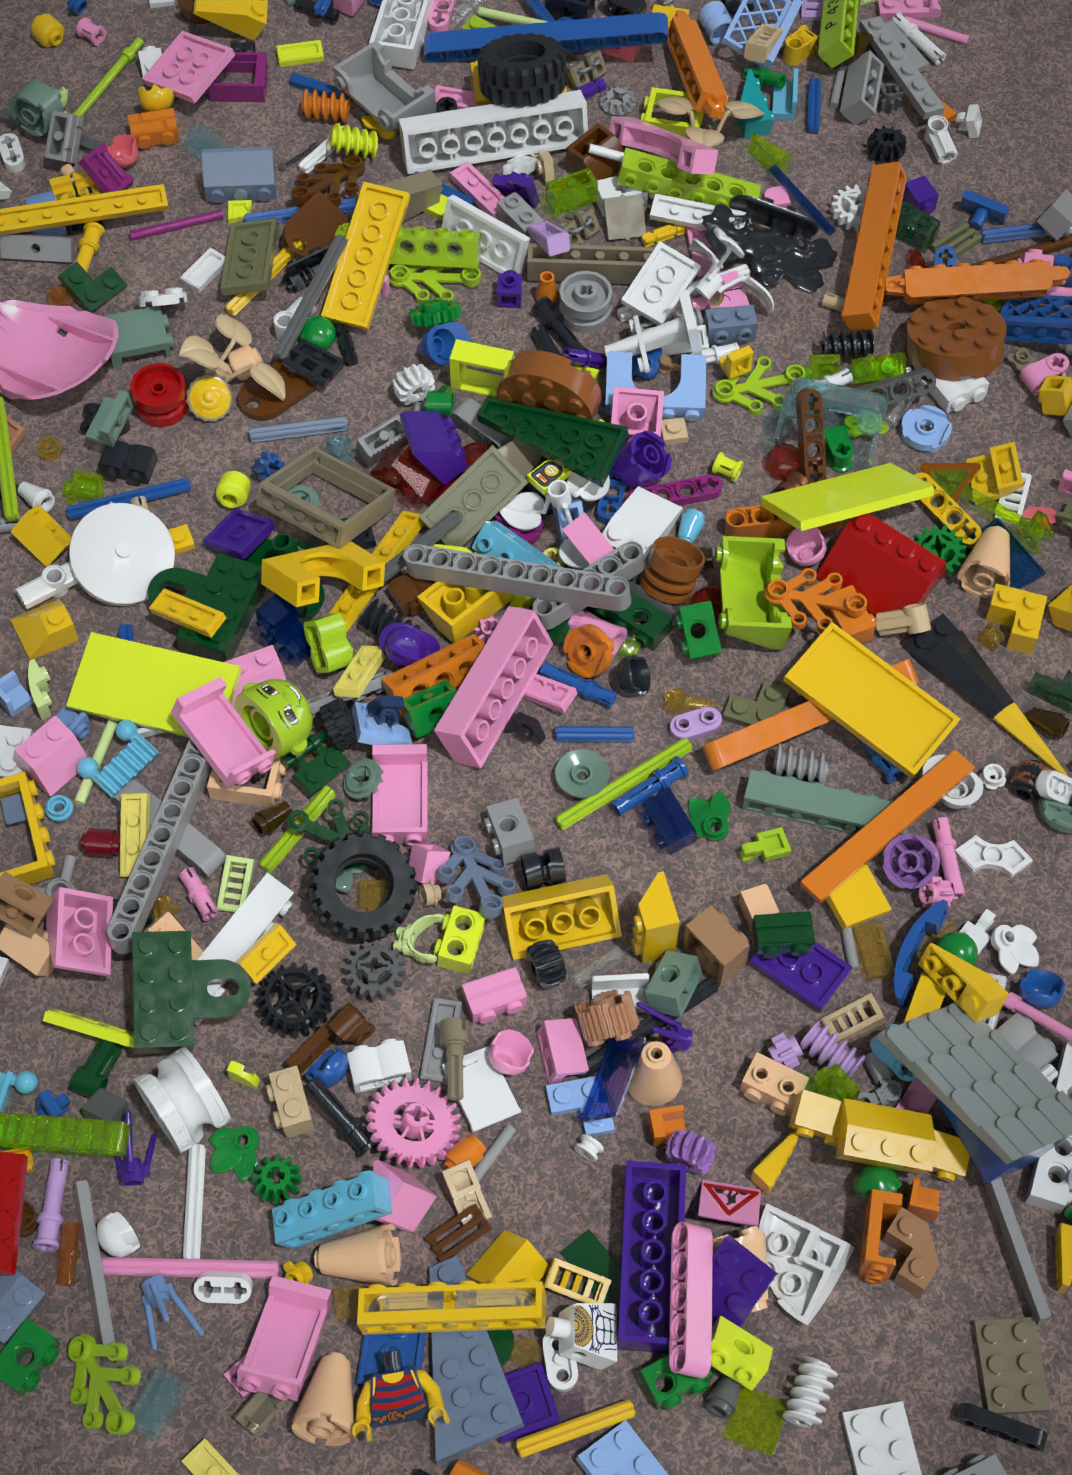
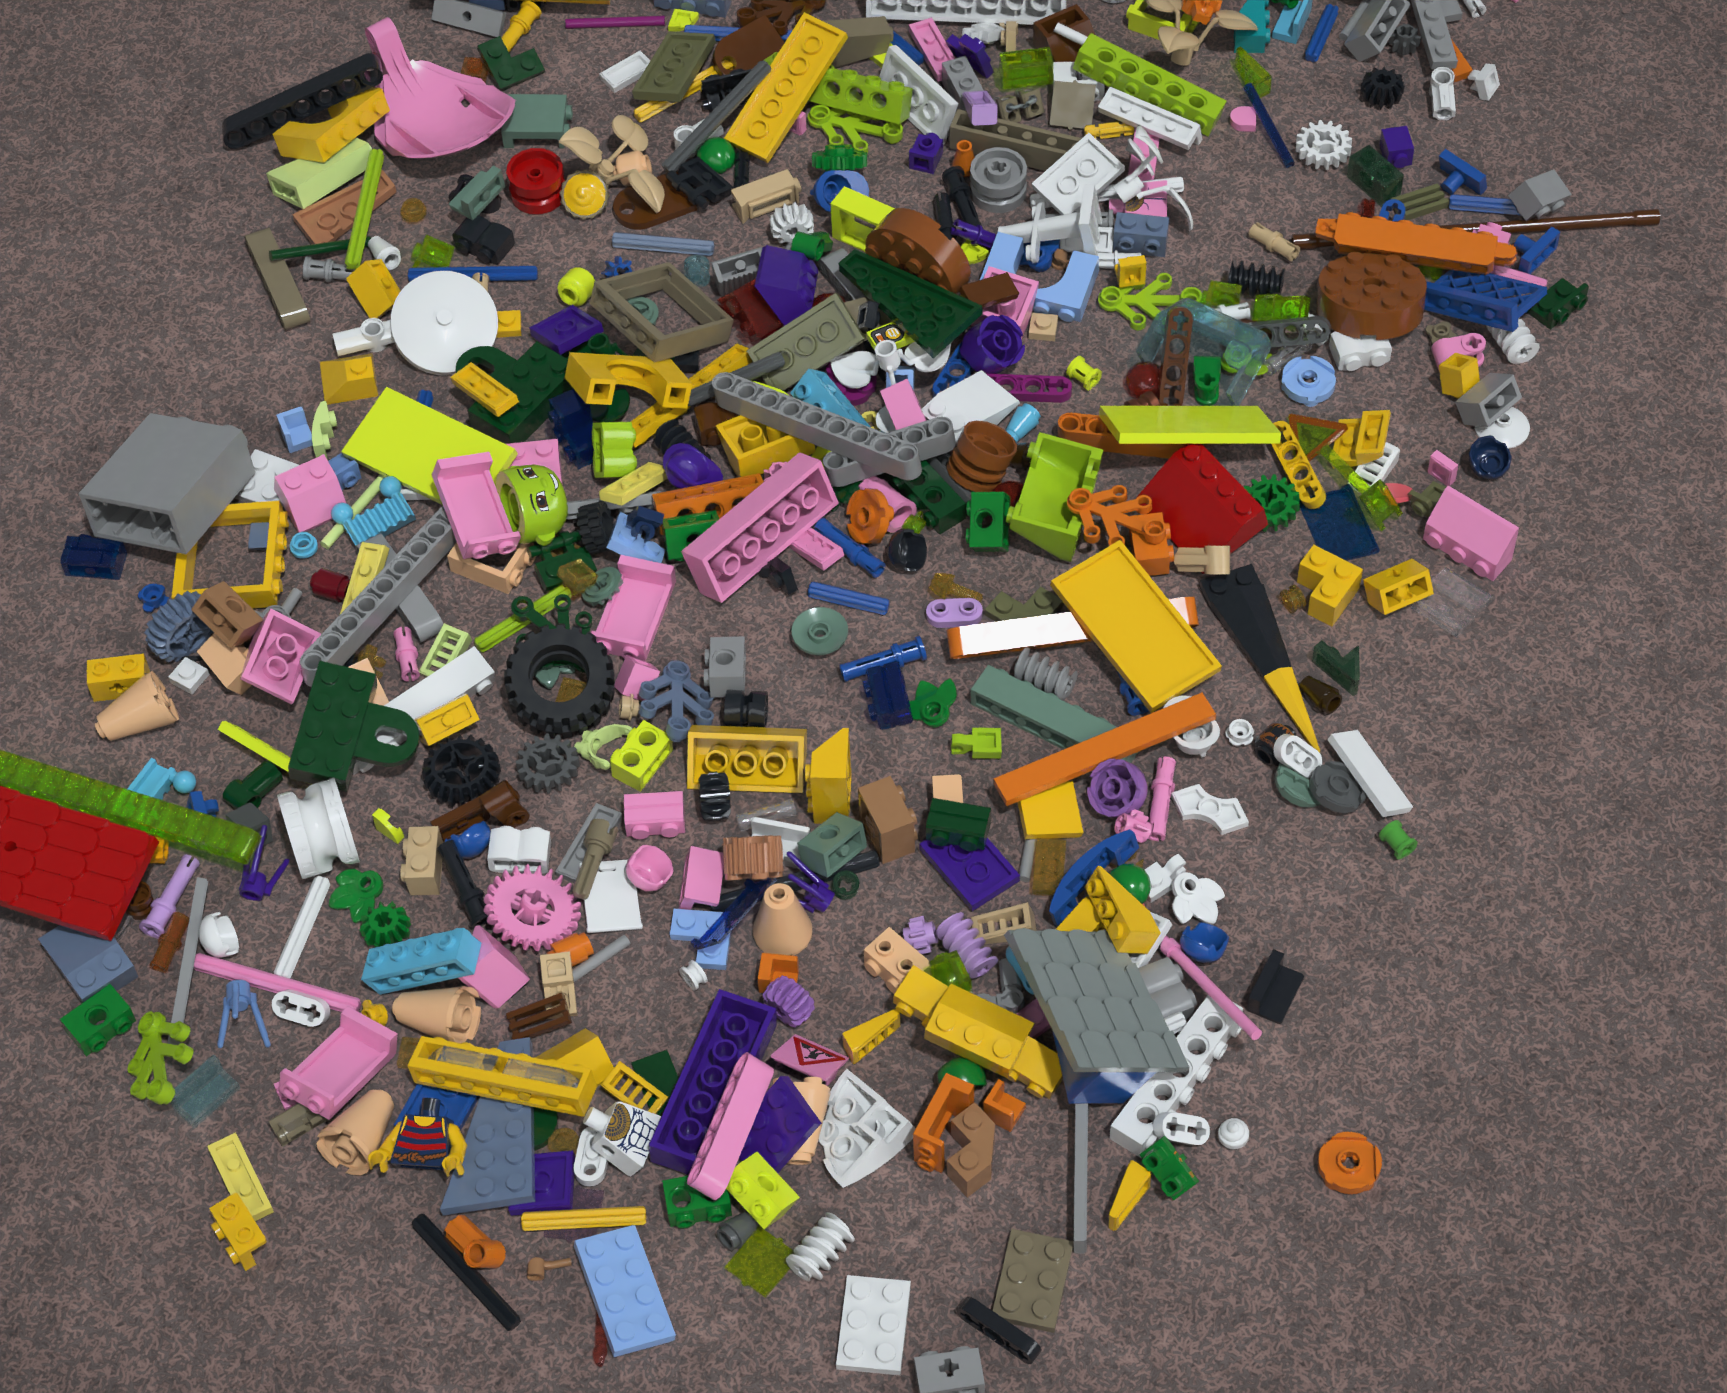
camera: 20 degrees right, 5 degrees down
(170, 296) = (575, 90): white plate -> none
(270, 818) = (498, 601): dark brown cone -> none
(339, 776) = (577, 576): none -> clear yellow tile
(378, 362) = (765, 195): none -> tan window
(522, 458) = (868, 316): none -> black plate
(622, 784) = (856, 651): lime axle -> none
(626, 409) = (990, 290): none -> reddish brown tile
(686, 153) = (1150, 51): bright pink arch -> none
(697, 1027) = (849, 877): none -> clear green bush
(771, 250) = (1215, 170): black plant -> none
(806, 546) = (1133, 466): bright pink hair -> none
(874, 247) = (1319, 185): orange brick -> none
(987, 563) = (1315, 523): light nougat cone -> none

